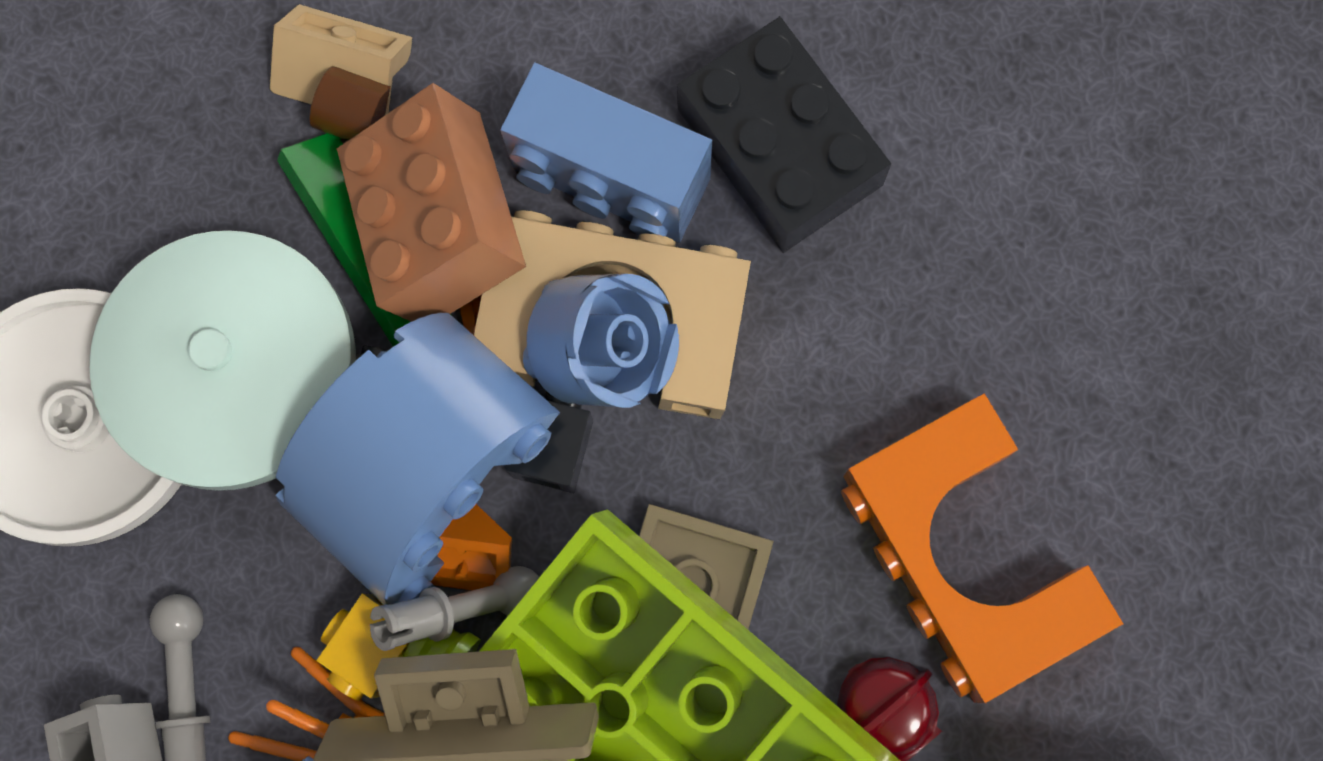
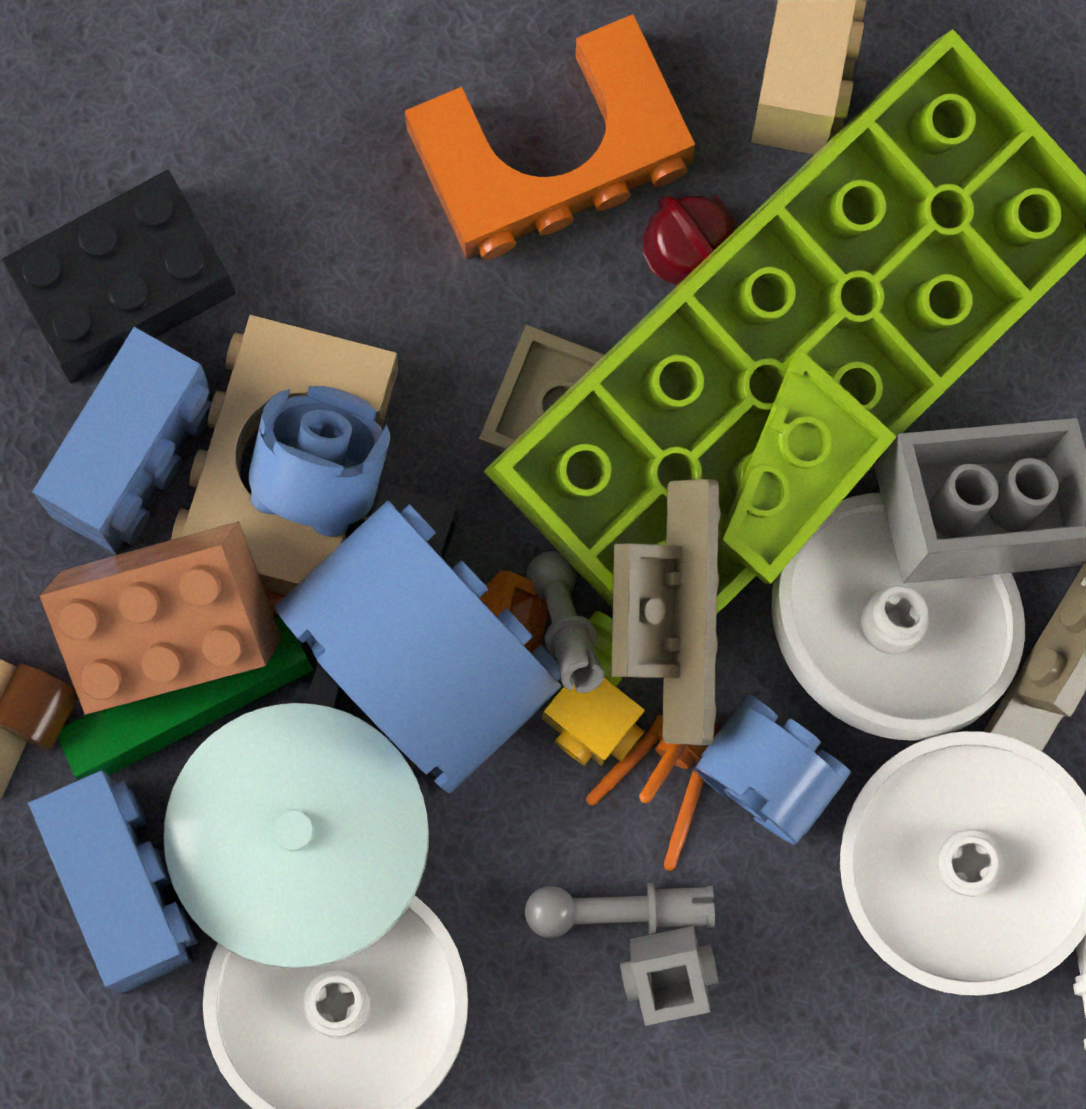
camera: 90 degrees left, 0 degrees up
(170, 185) = (114, 881): none -> medium blue brick

